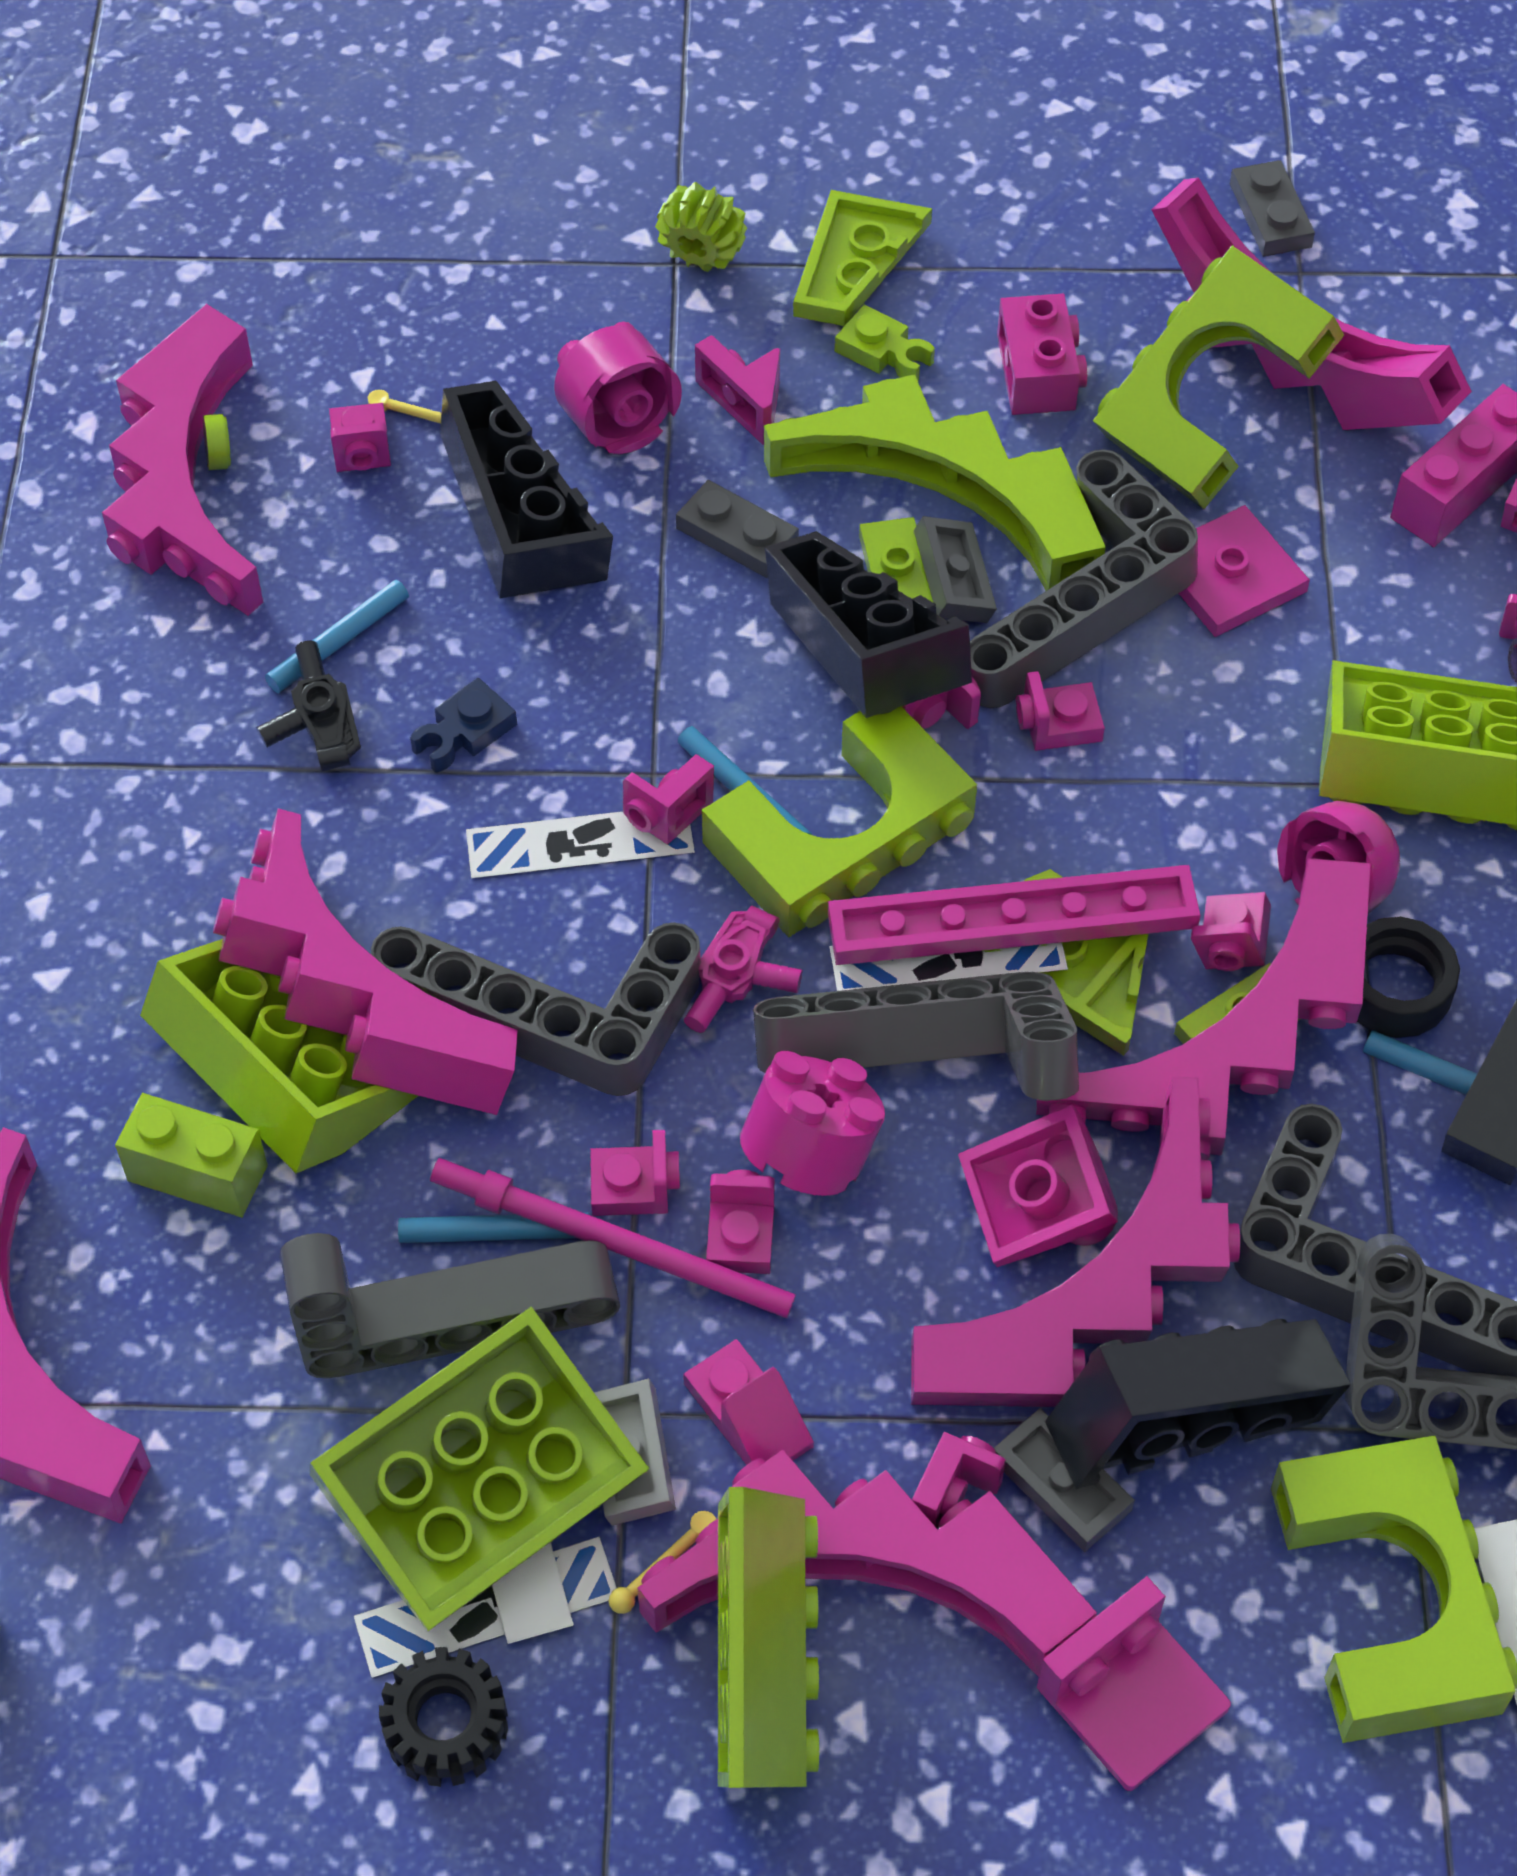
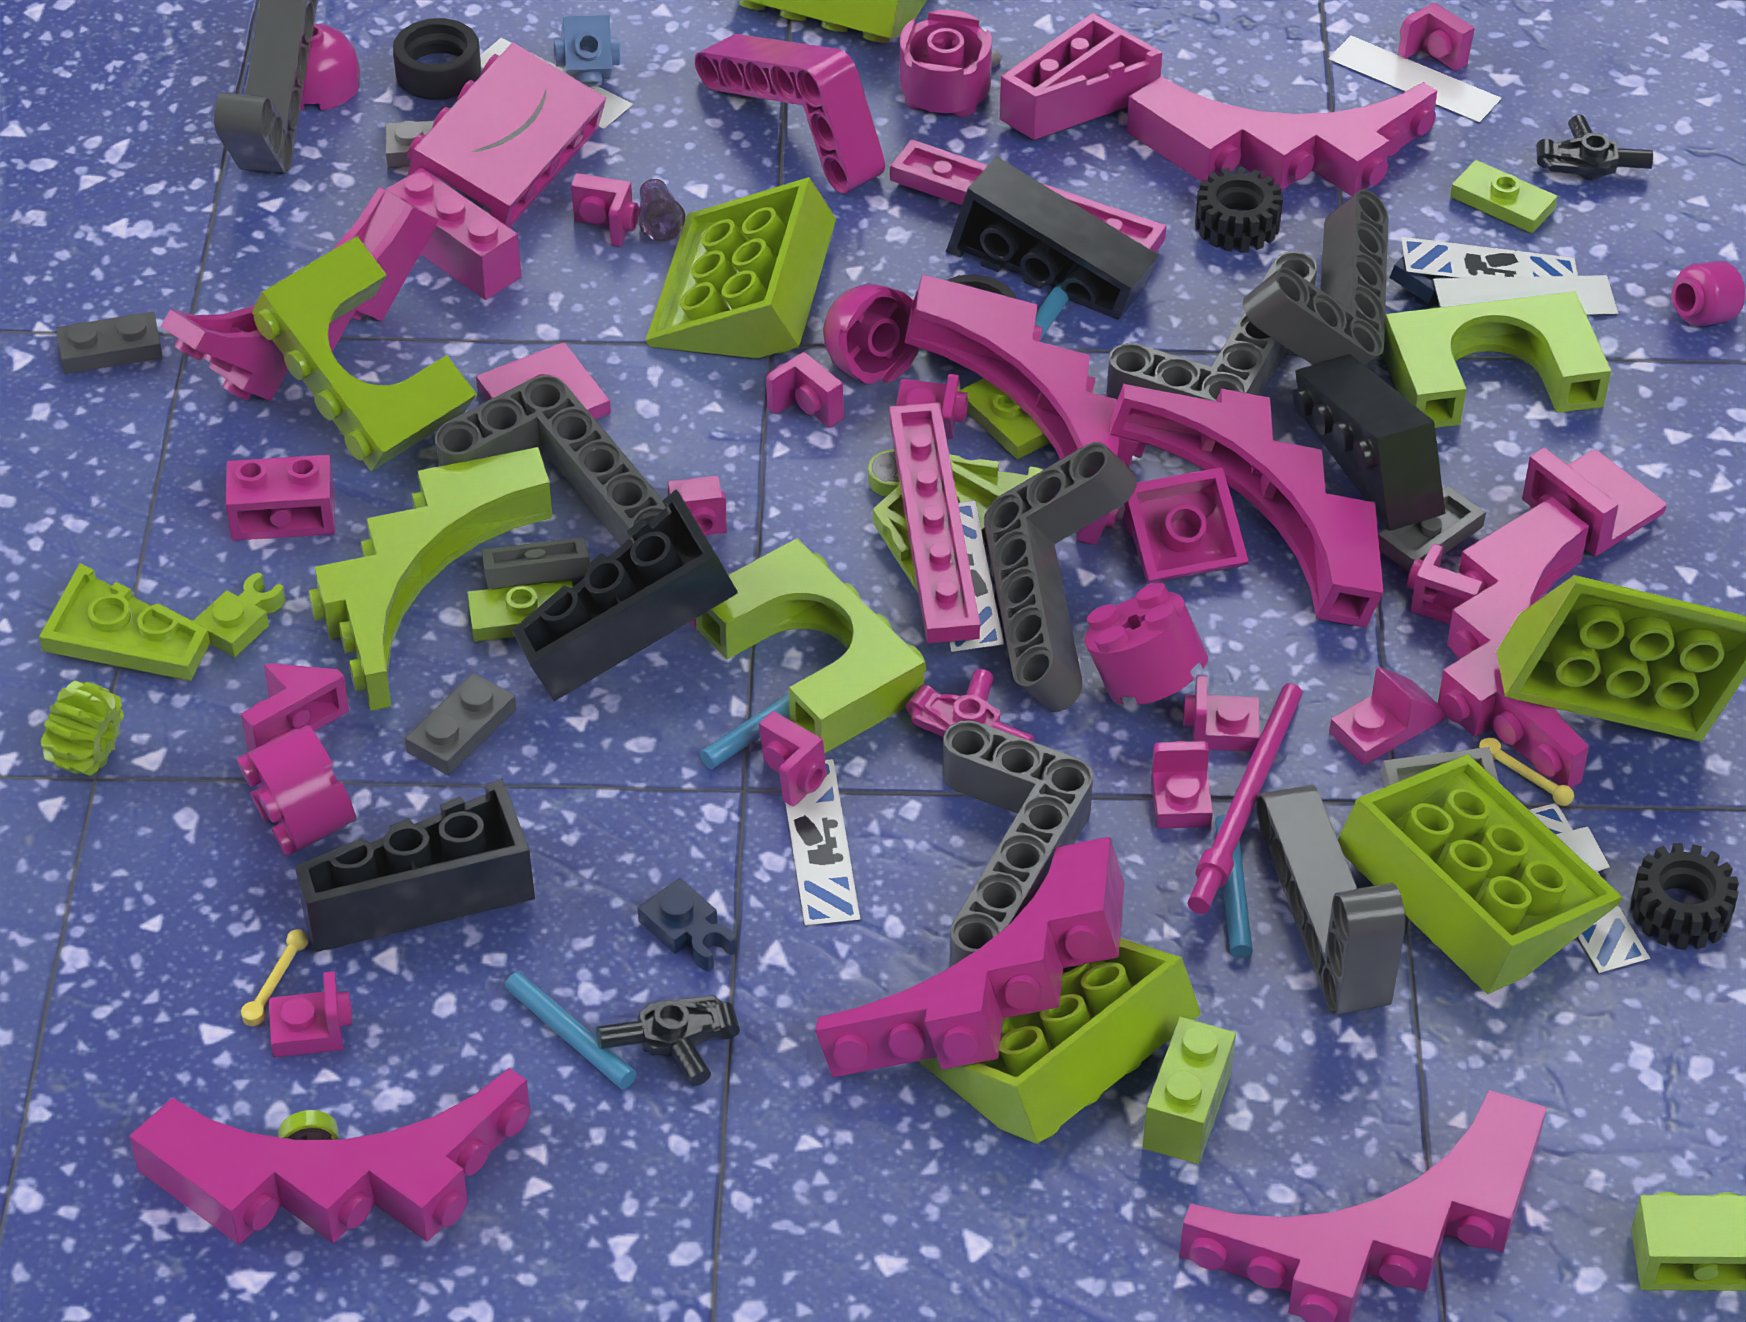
camera: 90 degrees left, 10 degrees down
(1251, 807) = (807, 384): none -> dark pink bracket

